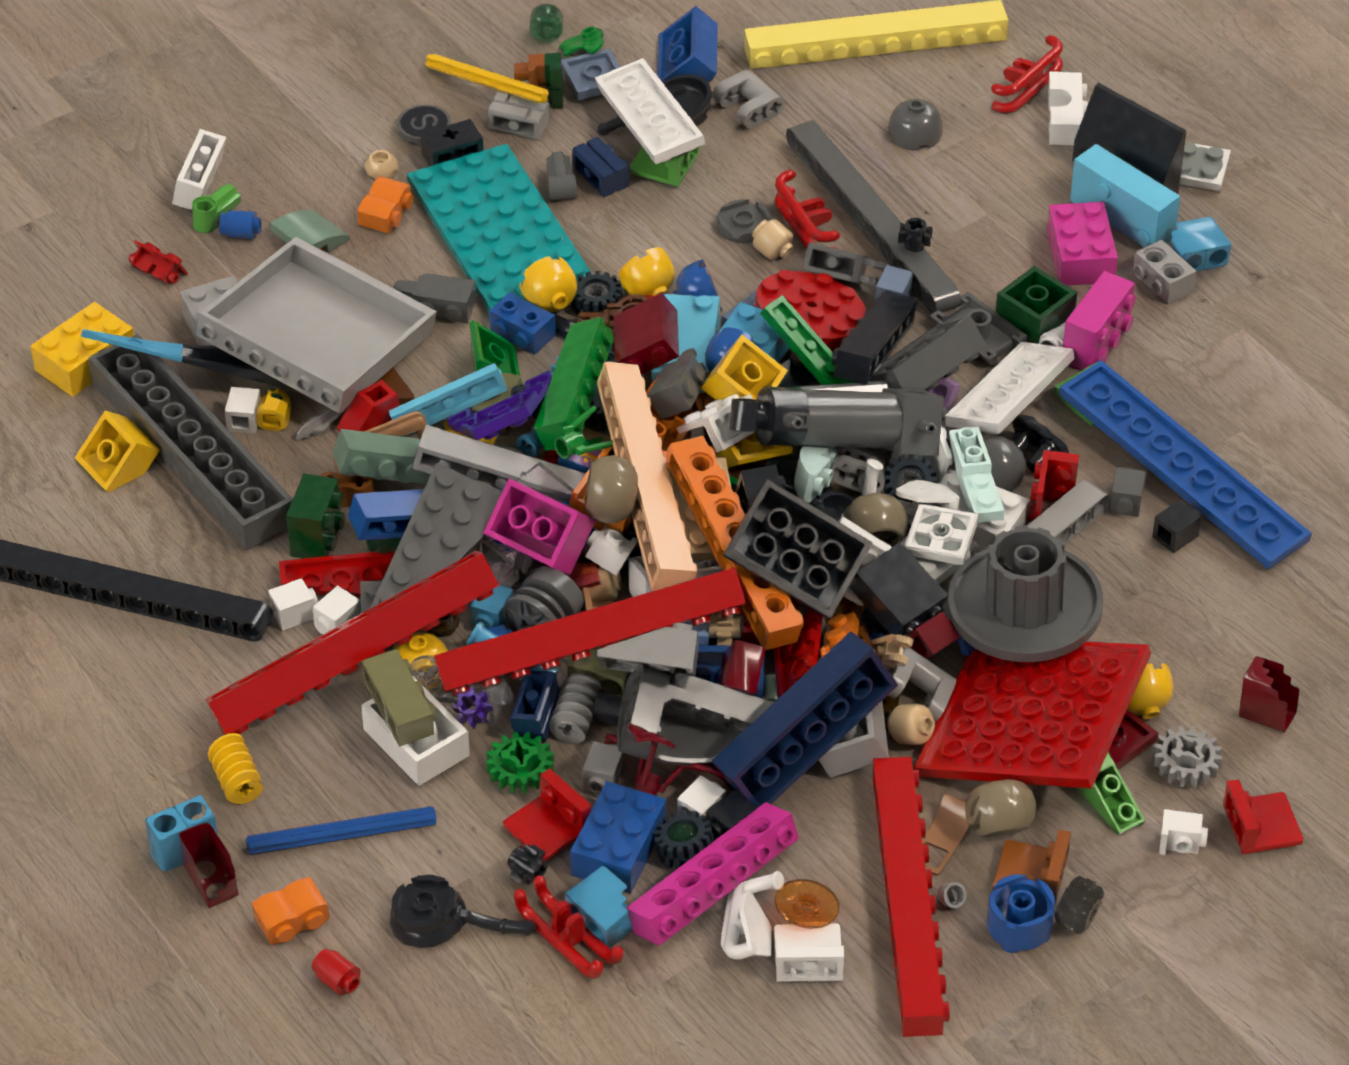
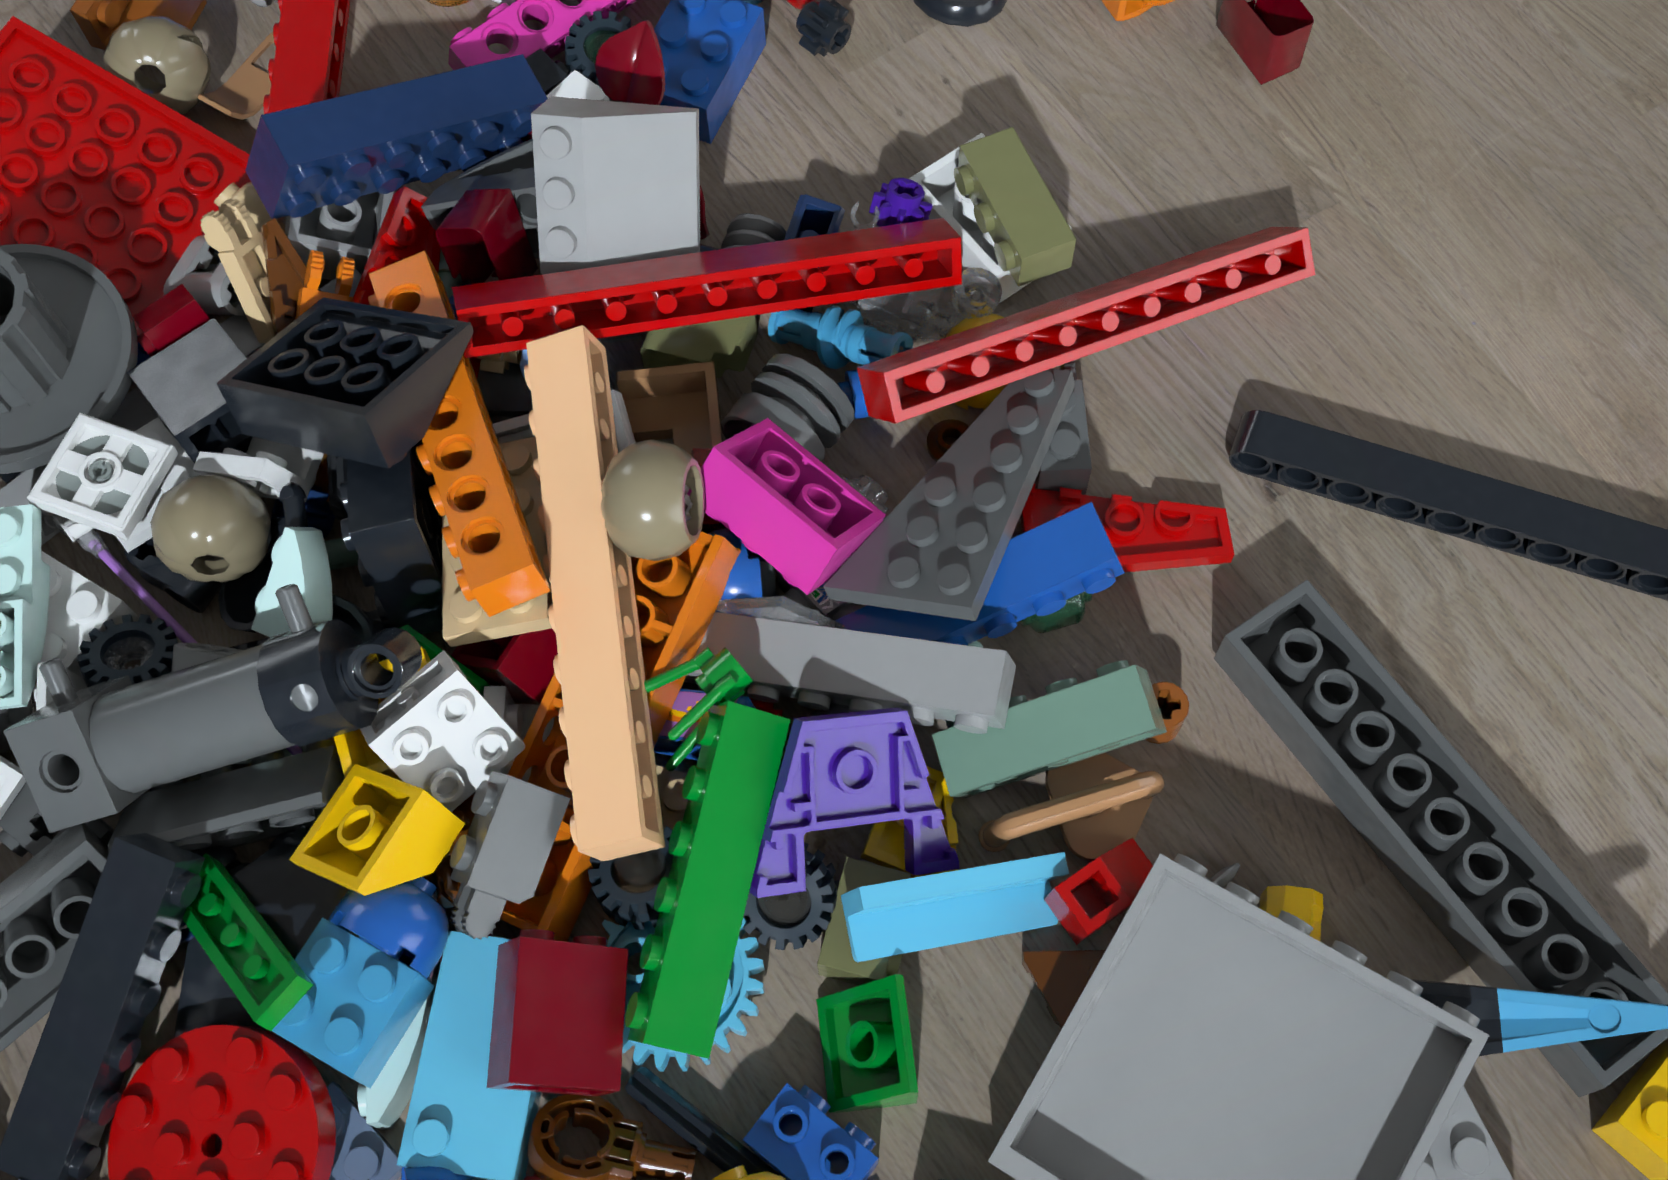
camera: 175 degrees left, 20 degrees up
(116, 451) = (1573, 819): yellow slope -> none
(166, 825) = (1317, 61): dark azure piece -> none
(235, 769) = (1250, 177): yellow piece -> none
(242, 410) = (1354, 916): white brick -> none
(292, 604) = (1200, 469): white brick -> none
(315, 517) = (1182, 616): dark green brick -> none
(335, 609) = (1126, 449): white brick -> none
(341, 830) = (1084, 99): blue axle -> none
(490, 609) = (873, 450): dark azure brick -> none
(519, 762) = (850, 171): green gear -> none
(552, 818) = (790, 97): red bracket -> none
(602, 765) = (718, 167): light grey brick -> none
(917, 491) = (109, 579): white piece -> none

